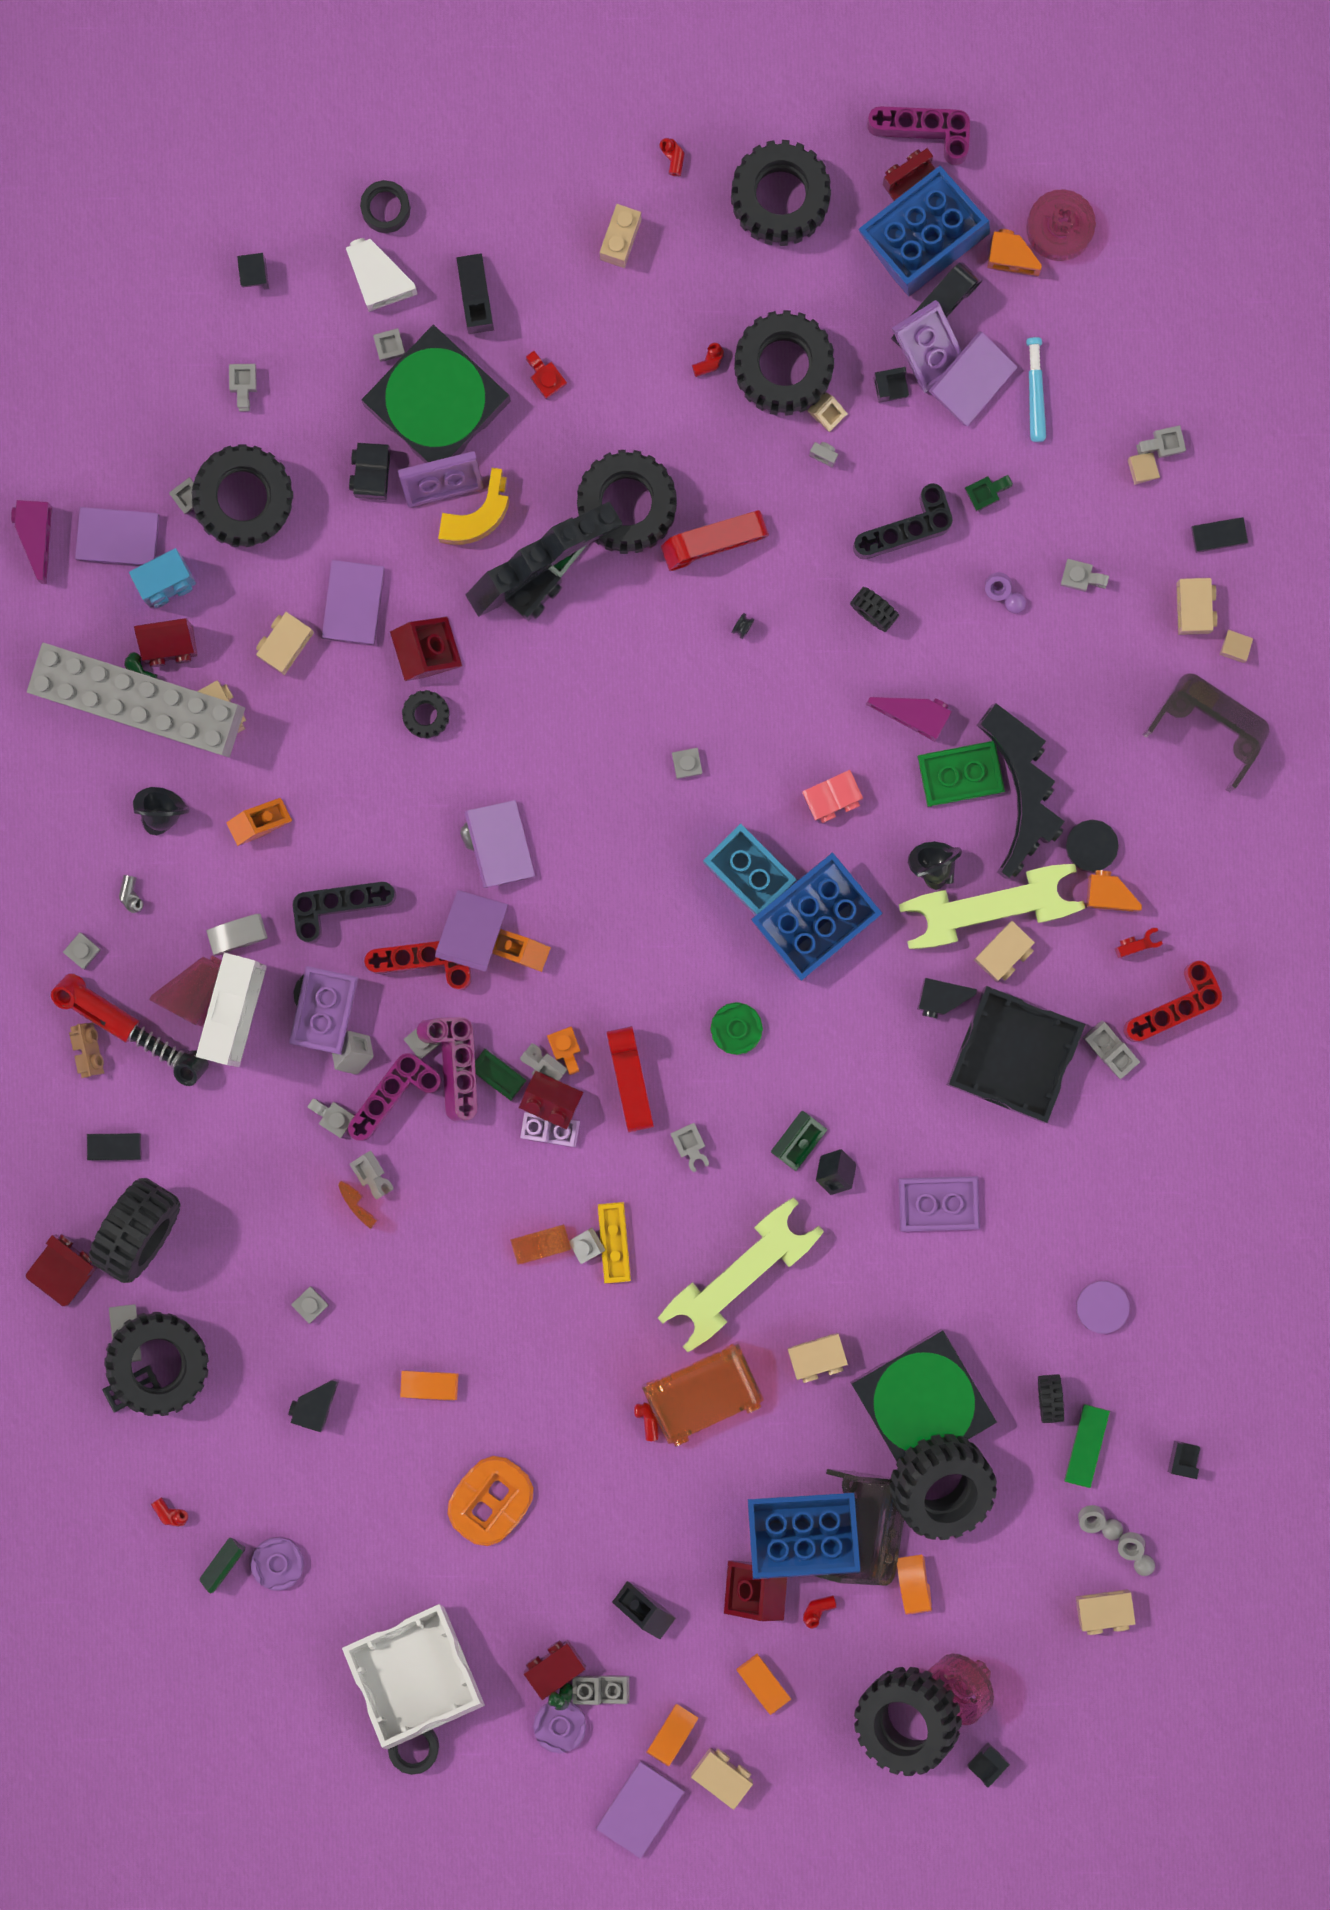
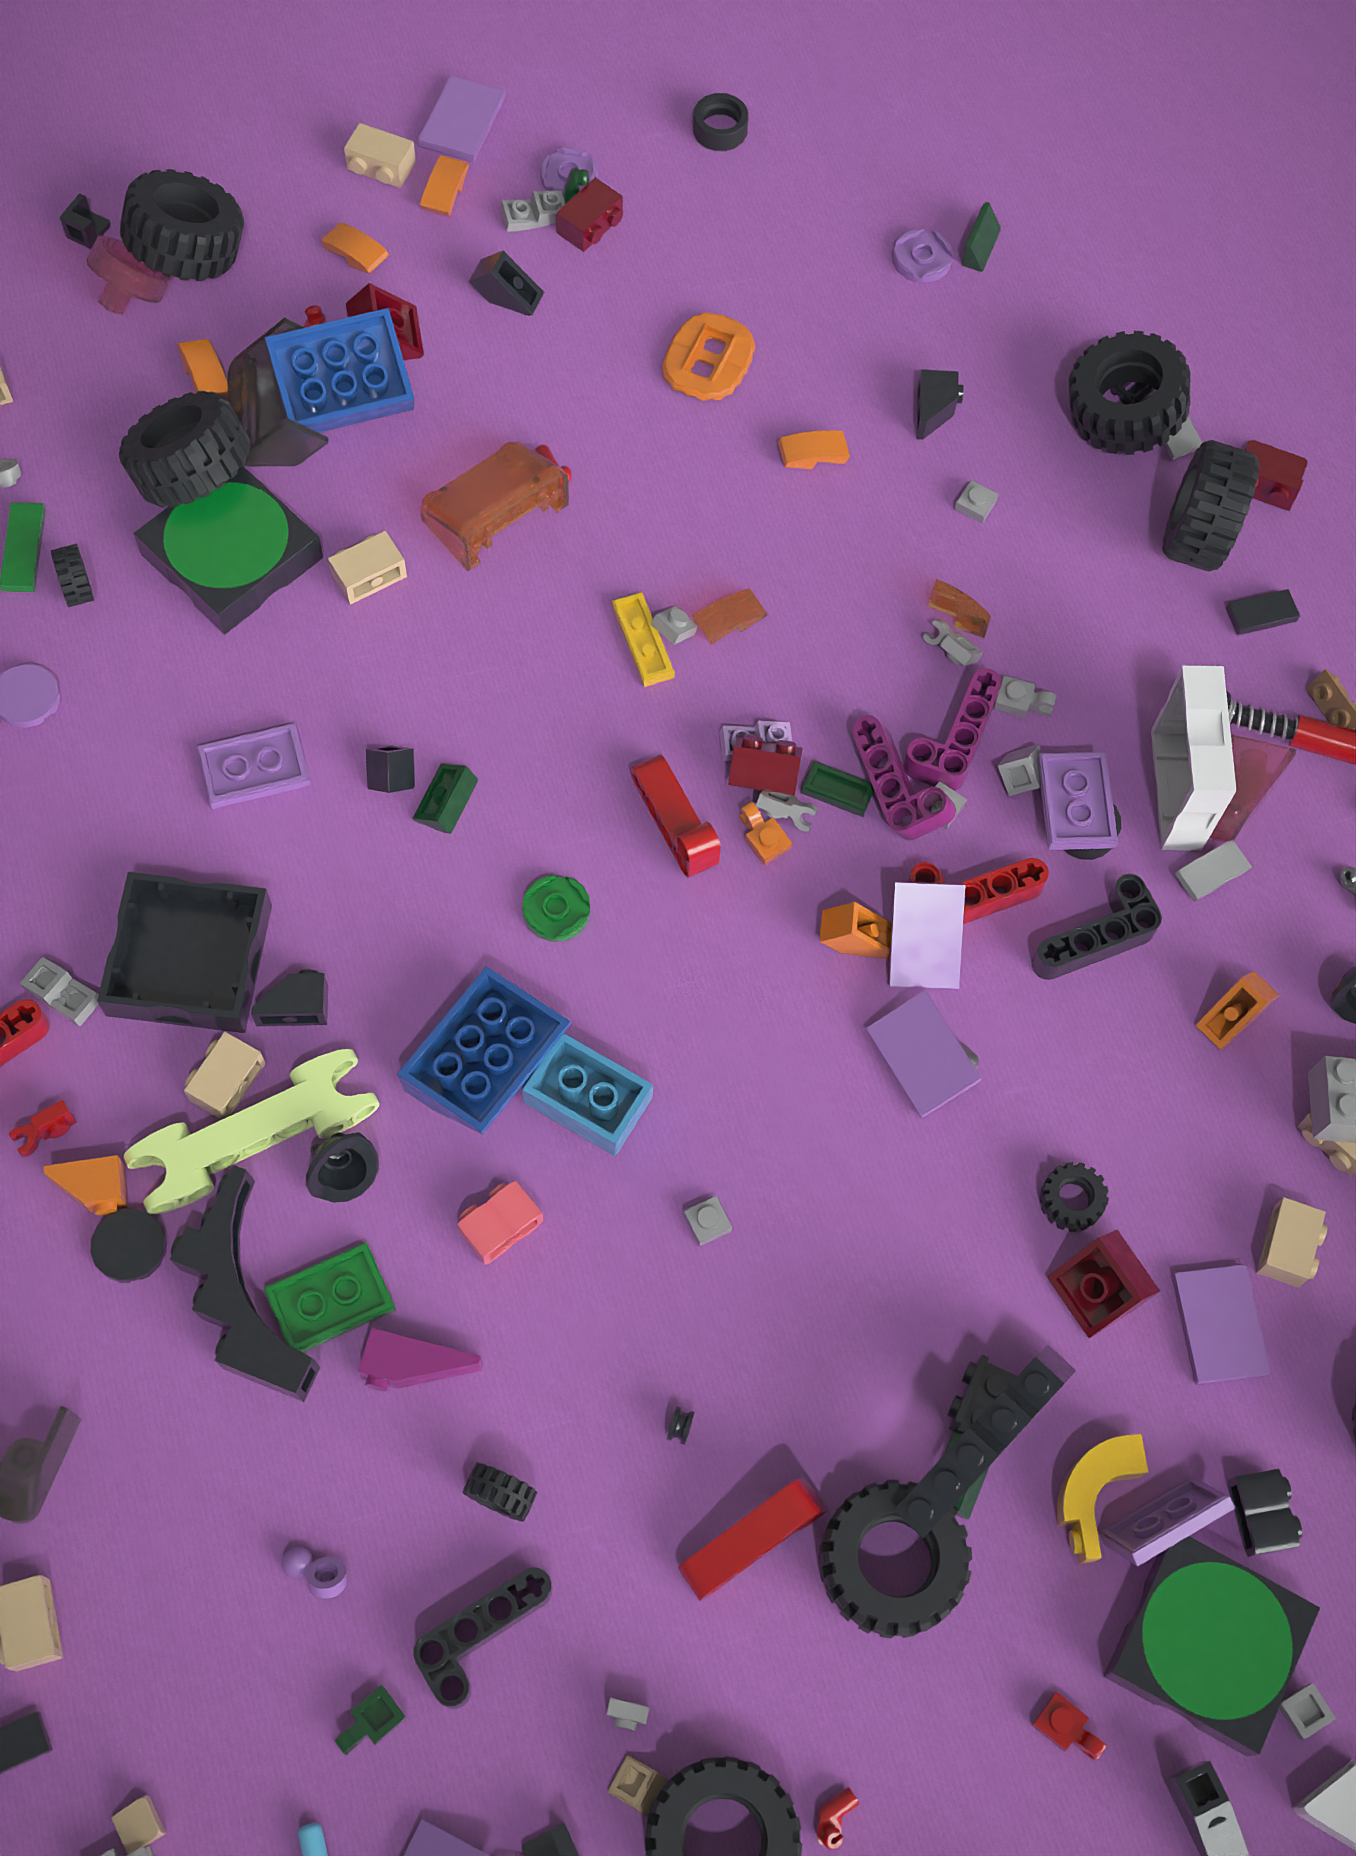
camera: 160 degrees right, 20 degrees down
(169, 1516) = (1056, 273): red arm -> none
(413, 1677) = (741, 170): white tile -> none
(688, 1143) = (580, 761): light grey plate -> none
(705, 1305) = (449, 672): yellowish green piece -> none
(1078, 576) = (210, 1627): light grey plate -> none

